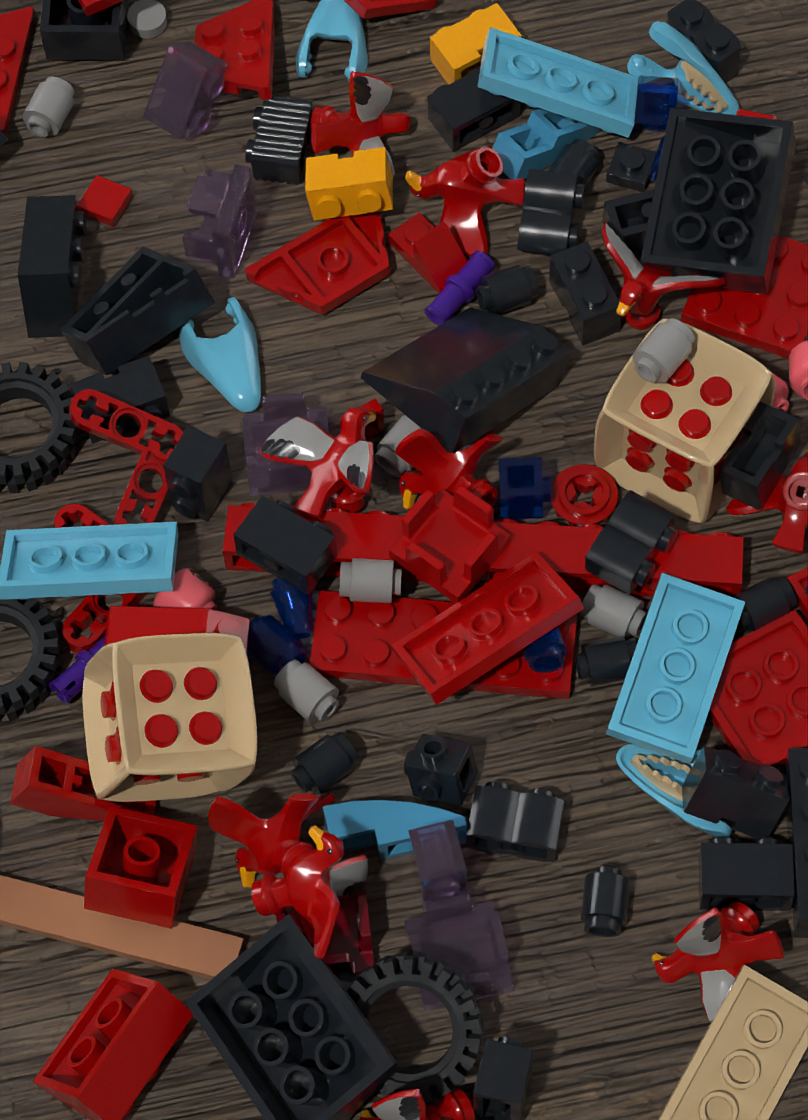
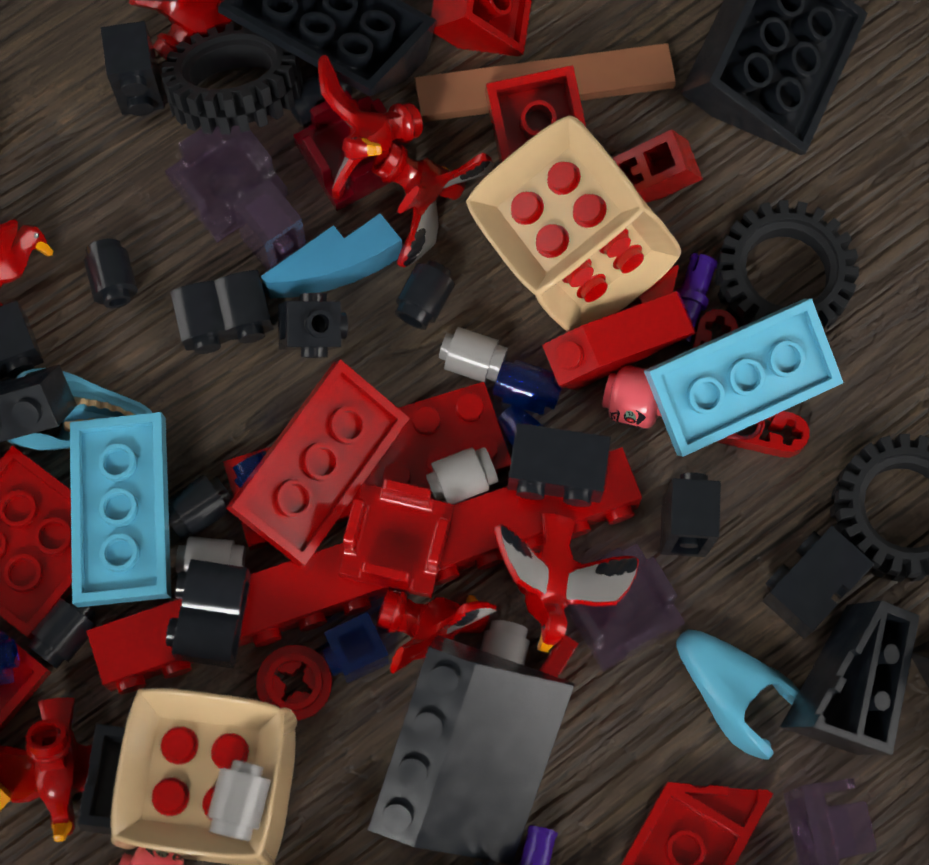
camera: 150 degrees right, 10 degrees up
(150, 455) = (751, 524): red beam -> none

